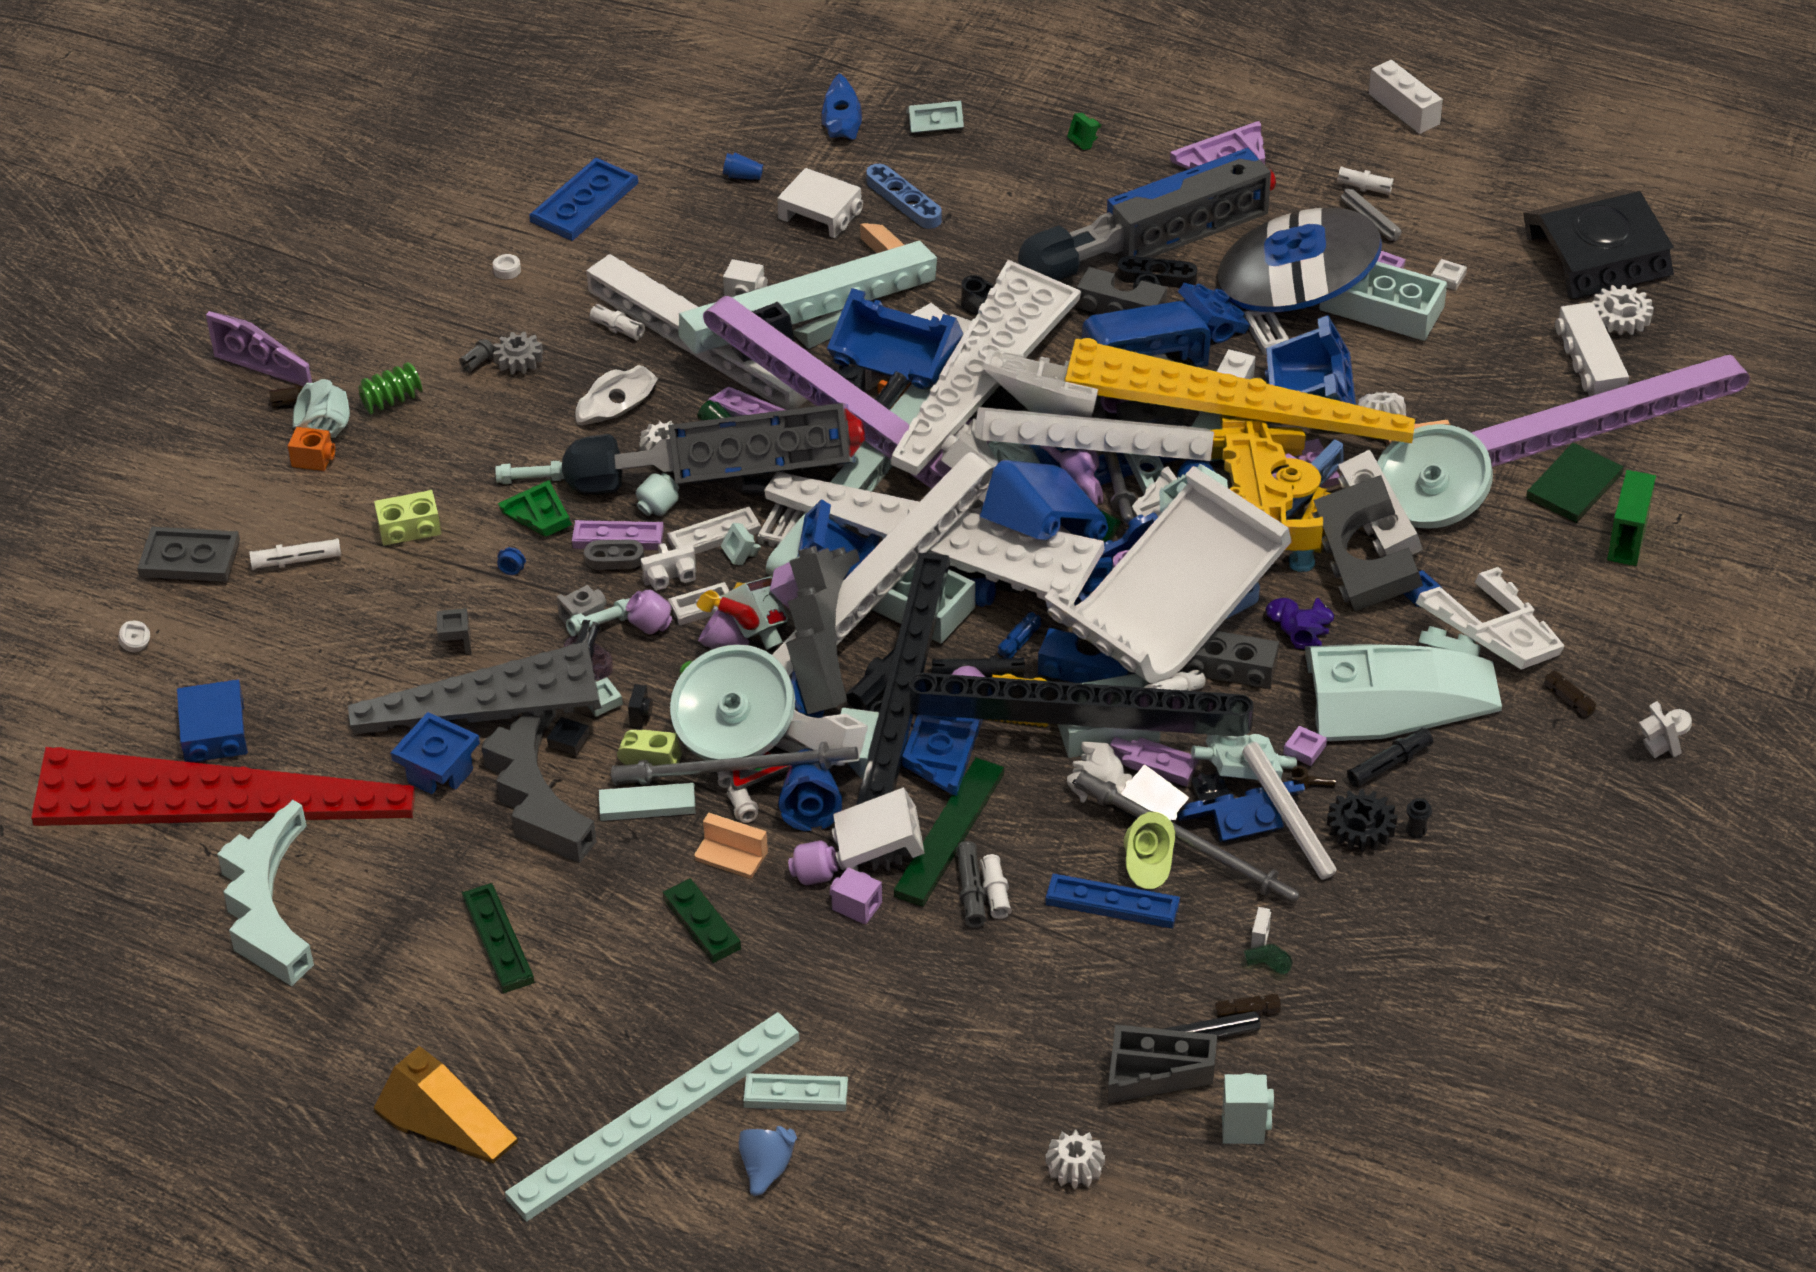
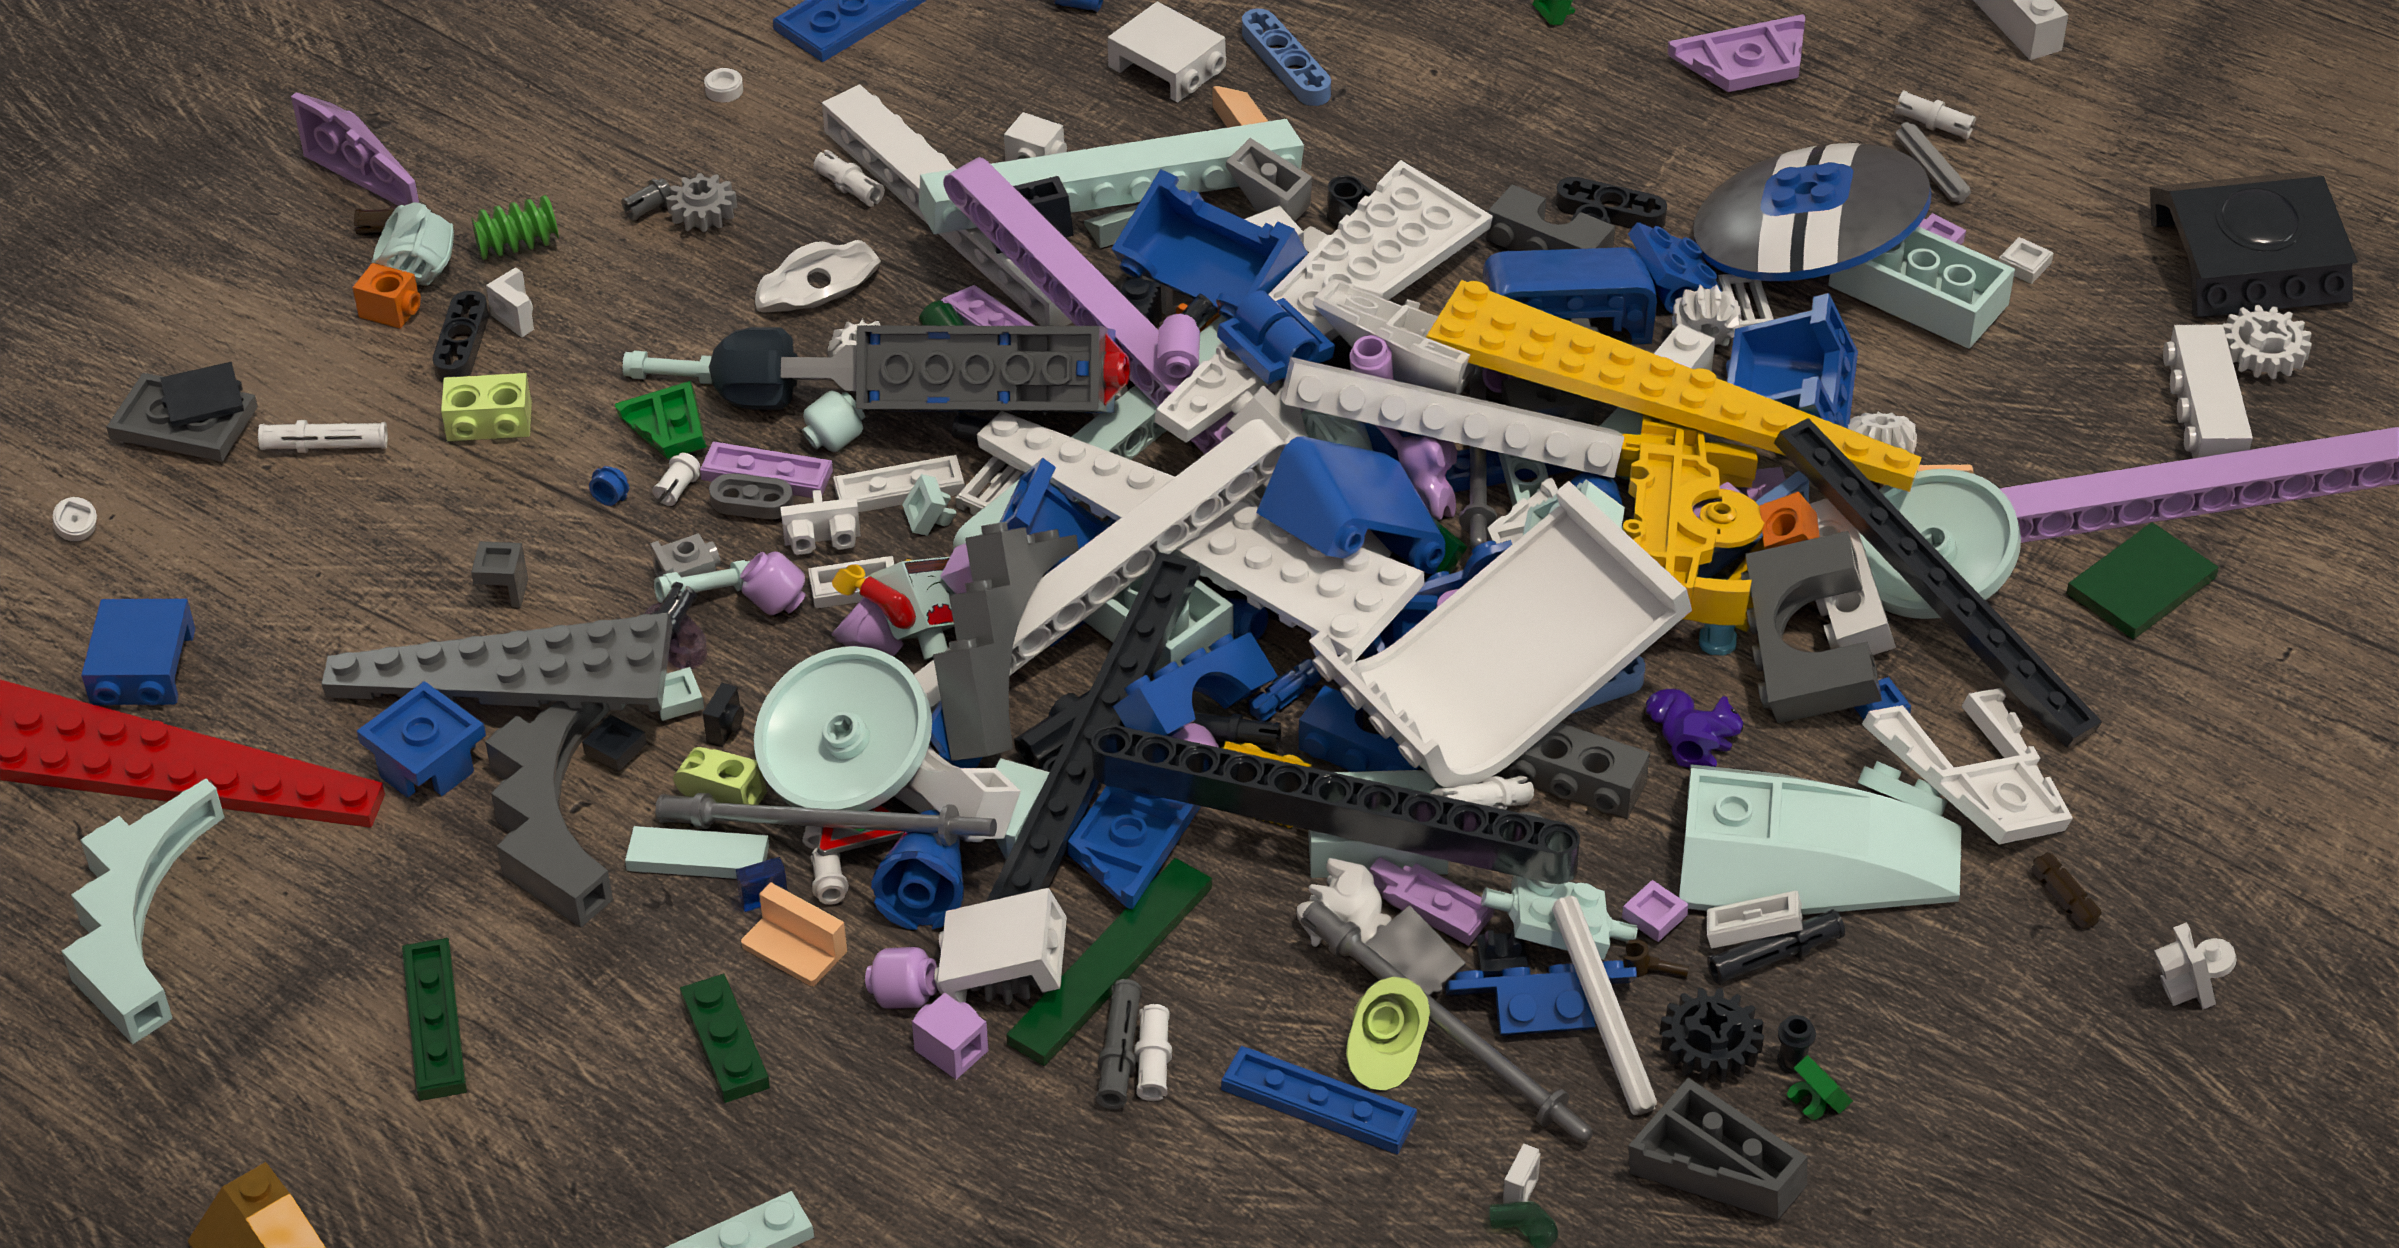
camera: 10 degrees right, 0 degrees up
(200, 536) = (202, 394): none -> black piece
(364, 463) = (456, 324): none -> black beam
(402, 443) = (510, 303): none -> white bracket
(559, 544) = (681, 472): none -> white pin
(695, 814) = (755, 878): none -> clear blue tile
(895, 409) = (1178, 346): none -> lavender brick
(919, 285) = (1270, 180): none -> light grey slope
(958, 395) = (1270, 333): none -> blue plate
(977, 628) = (1225, 674): none -> blue arch
(1031, 399) = (1372, 357): none -> lavender brick
(1159, 215) = (1629, 126): dark grey piece -> none
(1245, 338) = (1709, 313): none -> white gear
(1336, 474) = (1788, 521): none -> orange brick
(1372, 741) = (1754, 919): none -> white tile
(1386, 895) = (1718, 1154): none -> dark grey wedge
(1441, 842) = (1821, 1087): none -> green tile
(1443, 501) = (1938, 583): none -> black plate
(1631, 517) = (2211, 643): green brick -> none

